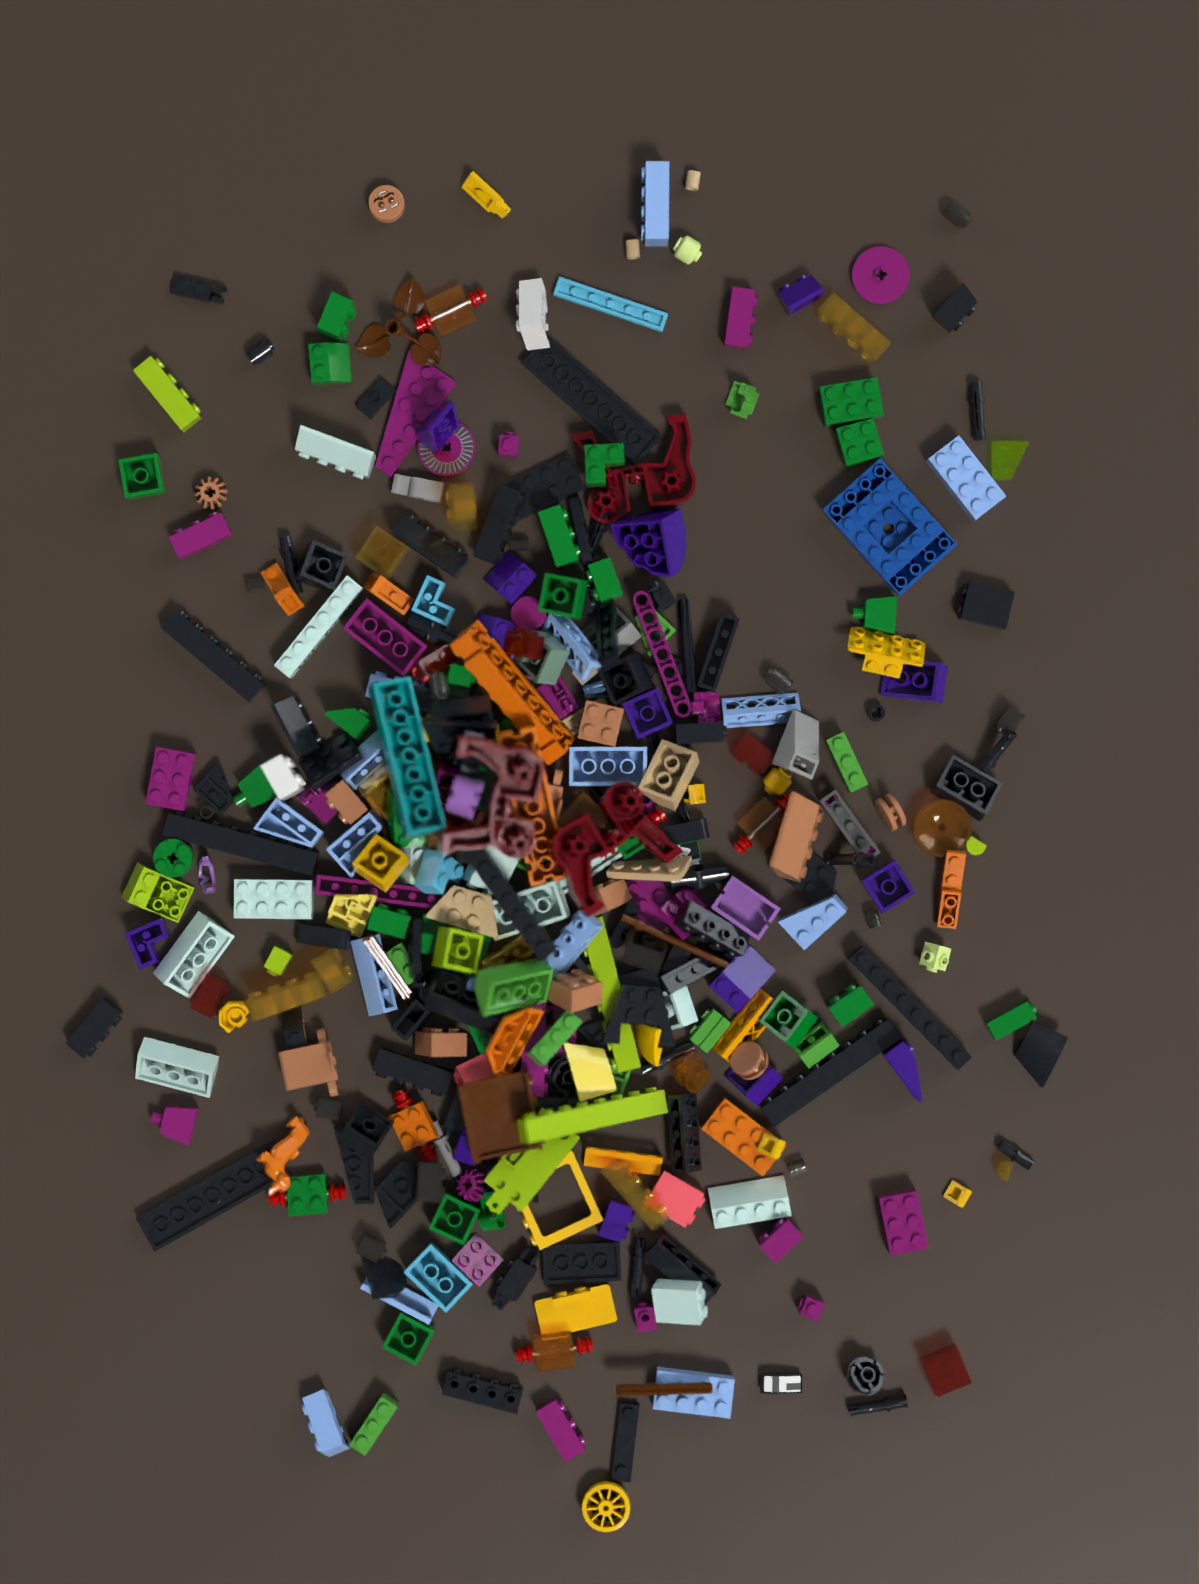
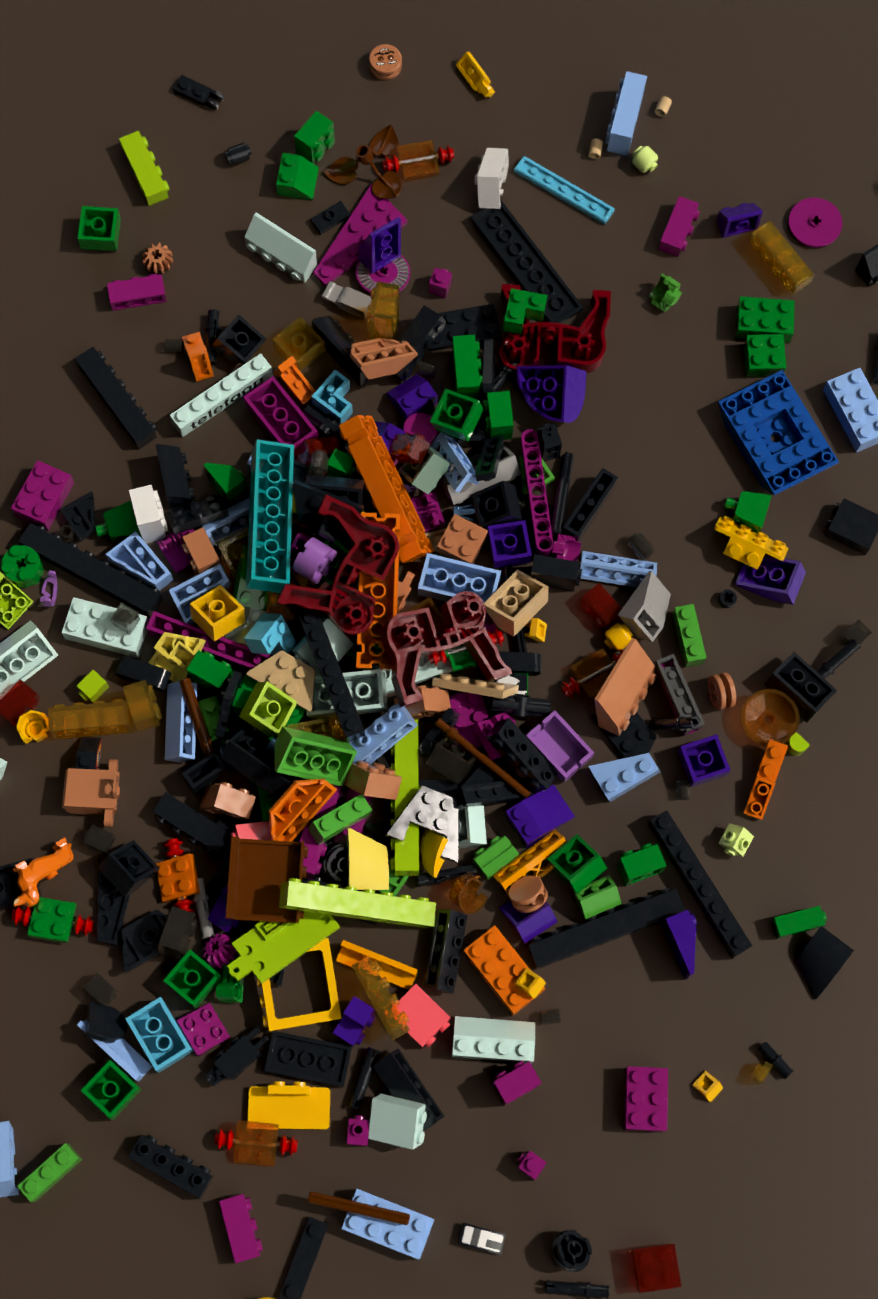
camera: 10 degrees right, 15 degrees down
(293, 892) = (125, 618): none -> clear smoke brick
(470, 552) = (381, 356): none -> nougat wedge

